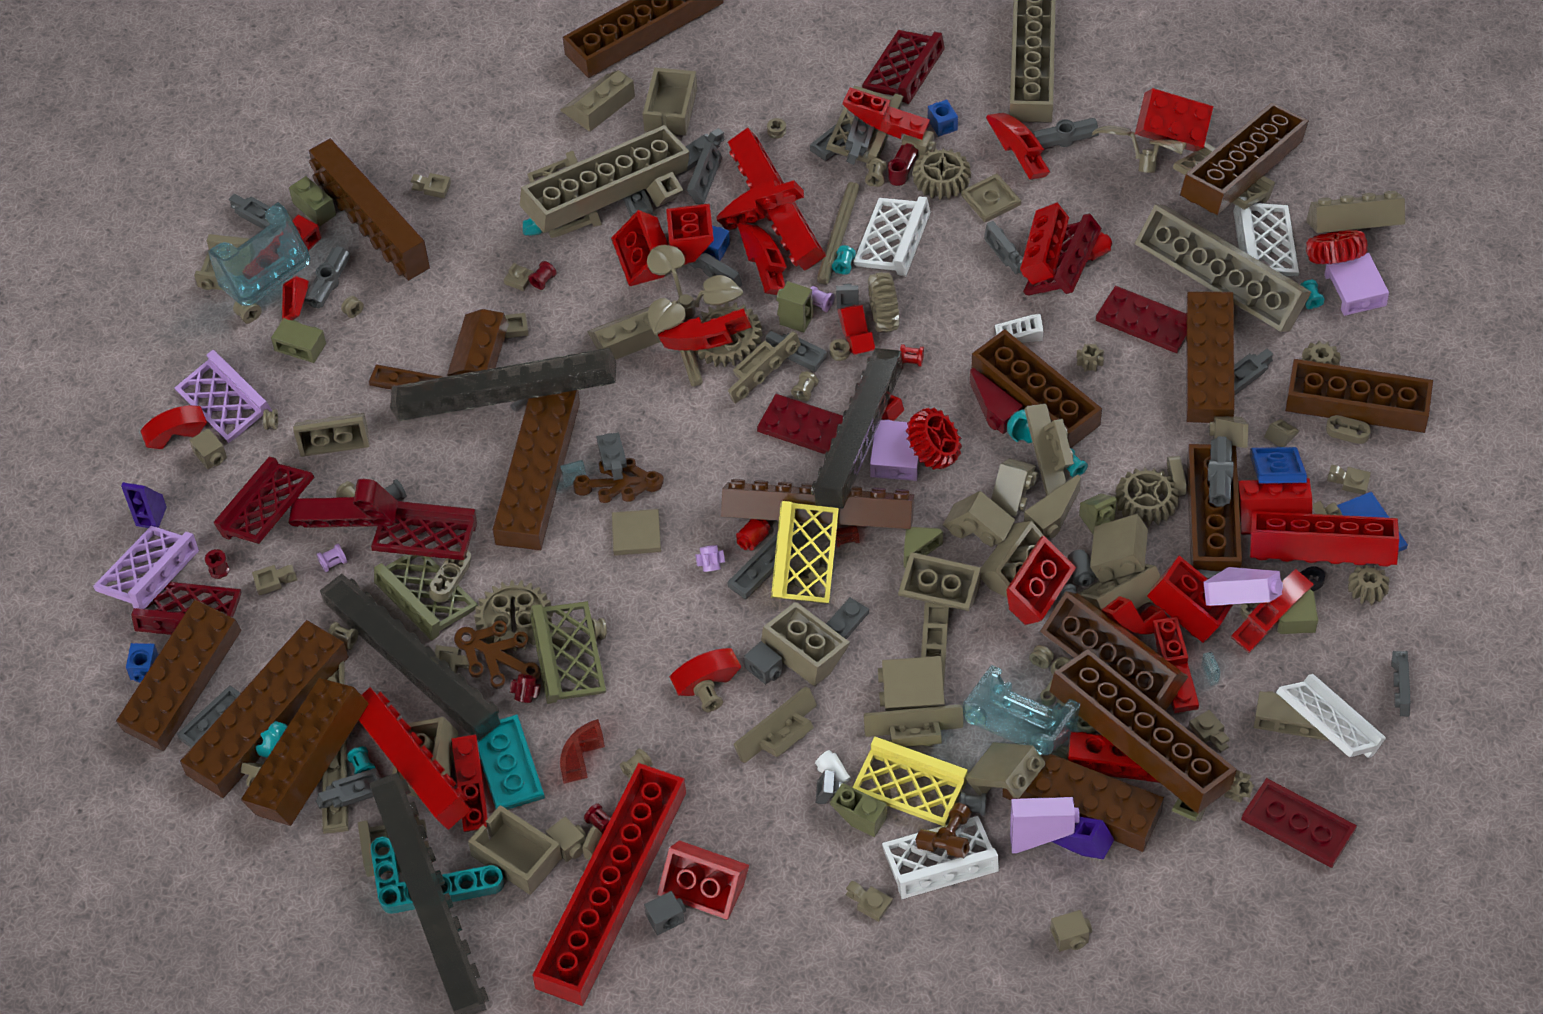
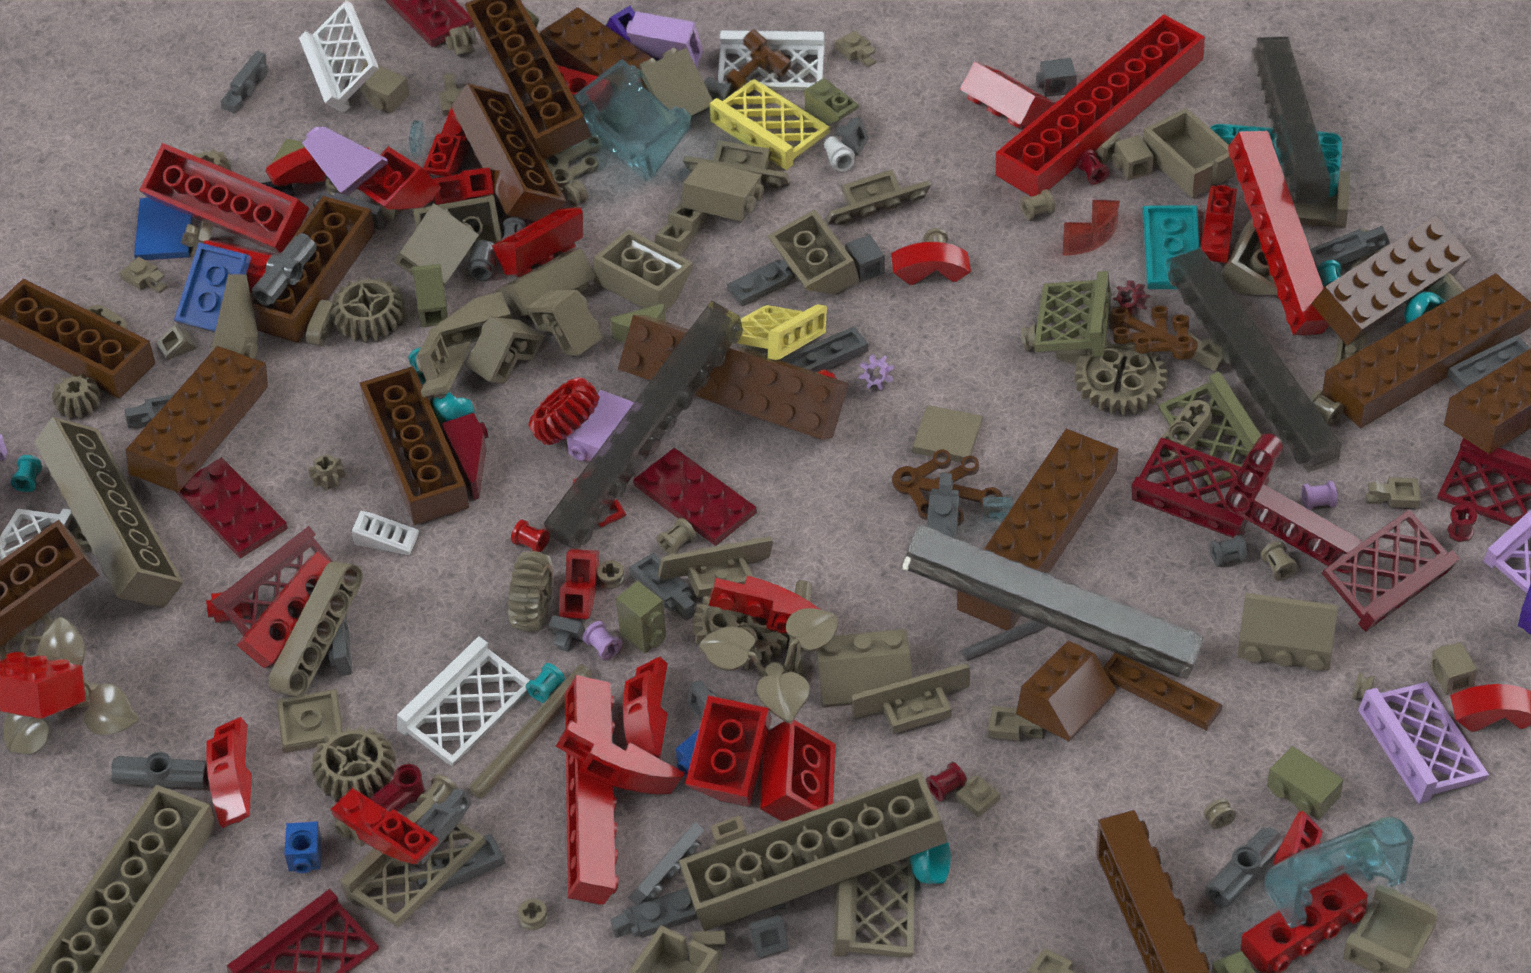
camera: 160 degrees left, 5 degrees down
(583, 317) = (913, 700): none -> dark tan bracket
(1016, 231) = (315, 628): none -> dark tan beam

